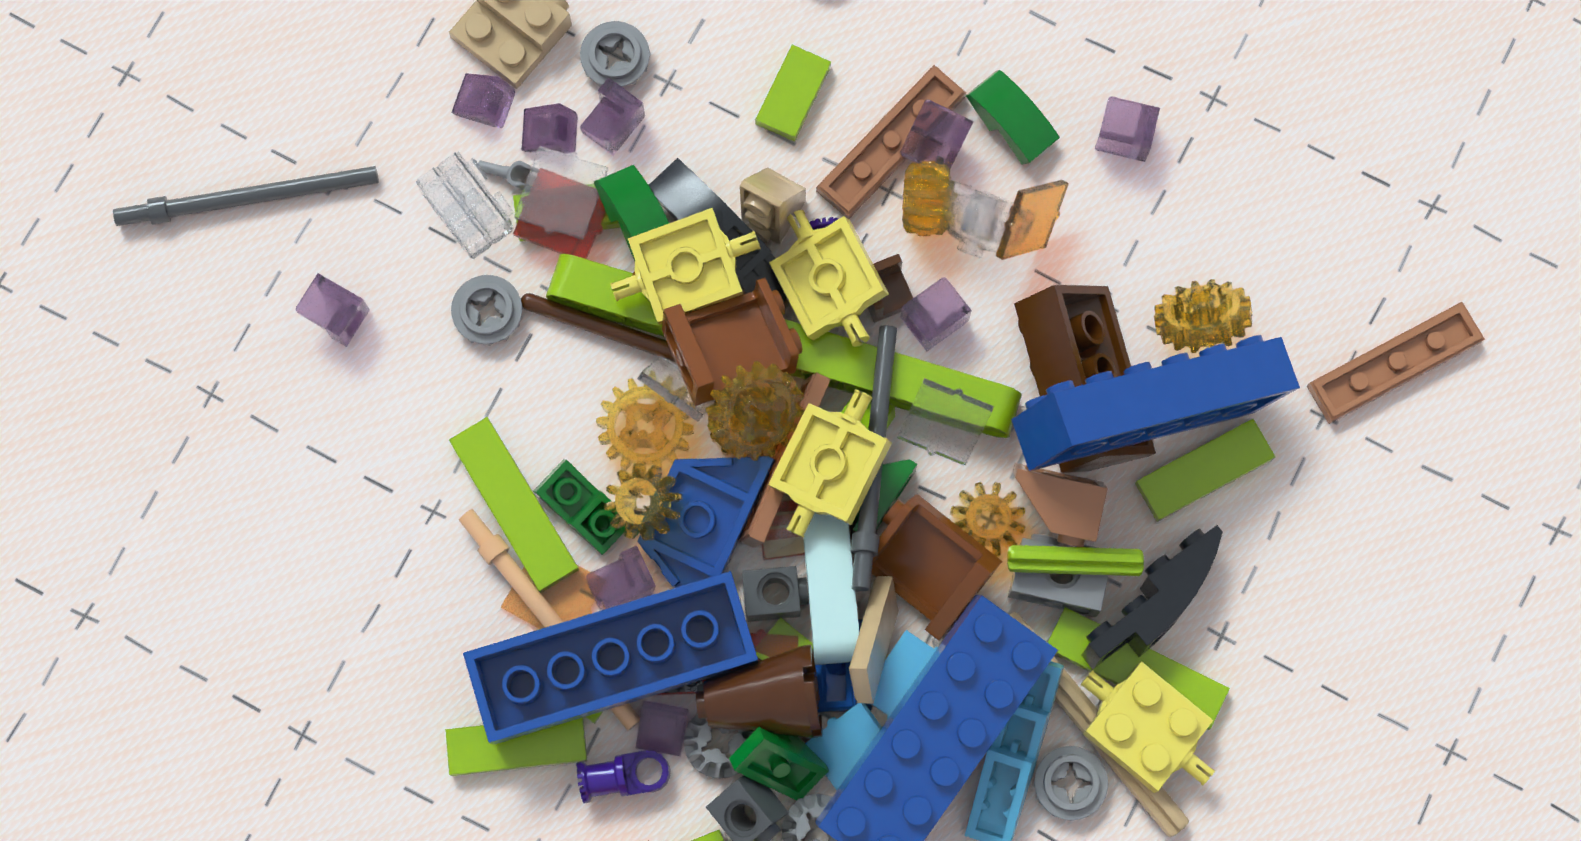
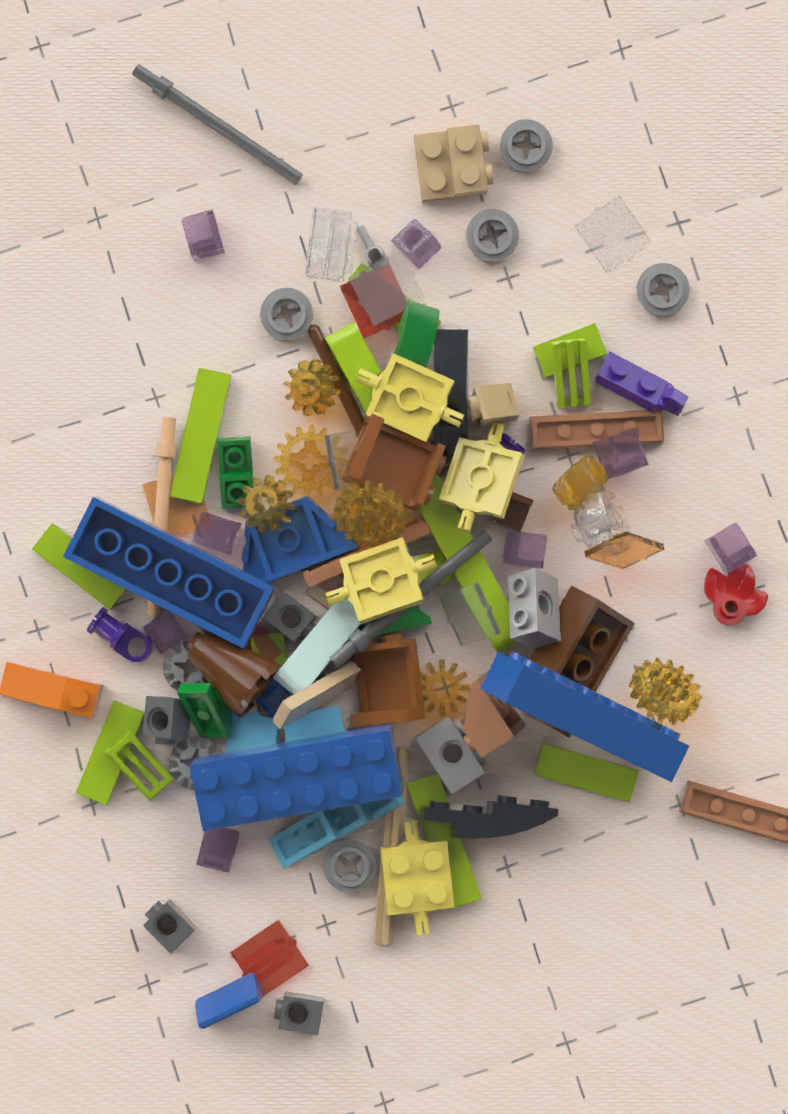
camera: 45 degrees right, 10 degrees up
(484, 99) = (397, 192): clear purple slope -> none
(567, 340) = (309, 399): none -> clear yellow gear
(613, 117) = (456, 270): clear purple panel -> none
(827, 97) = (573, 400): none -> lime tile
(892, 61) = (639, 385): none -> dark purple hinge
(1001, 355) = (534, 608): none -> light grey brick
(1019, 121) = (676, 480): green slope -> none
(1075, 560) = (462, 756): lime axle -> none
(1172, 164) = (734, 589): none -> red plate

